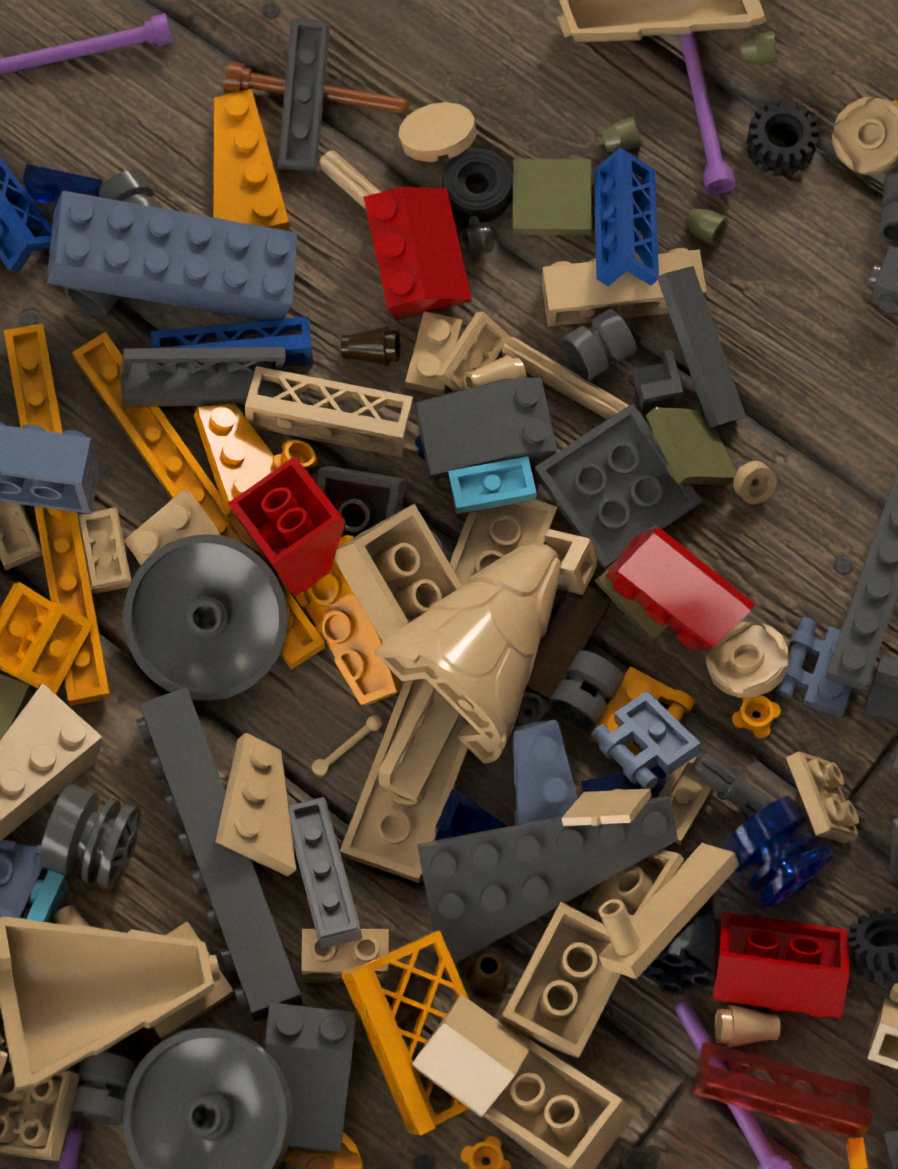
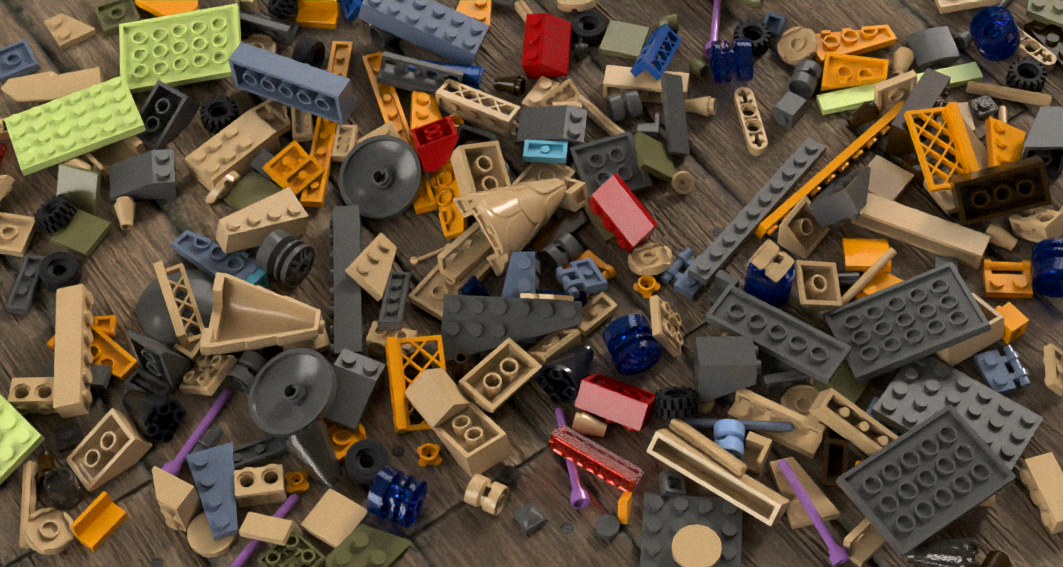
camera: 20 degrees right, 15 degrees down
(642, 939) = (538, 360): tan piece -> none
(729, 784) = (614, 305): dark grey axle -> none
(738, 308) = (703, 106): none -> tan cone
(768, 203) = (731, 60): none -> clear blue wheel
(812, 93) = (775, 23): none -> sand blue slope
(837, 315) = (748, 121): none -> tan beam

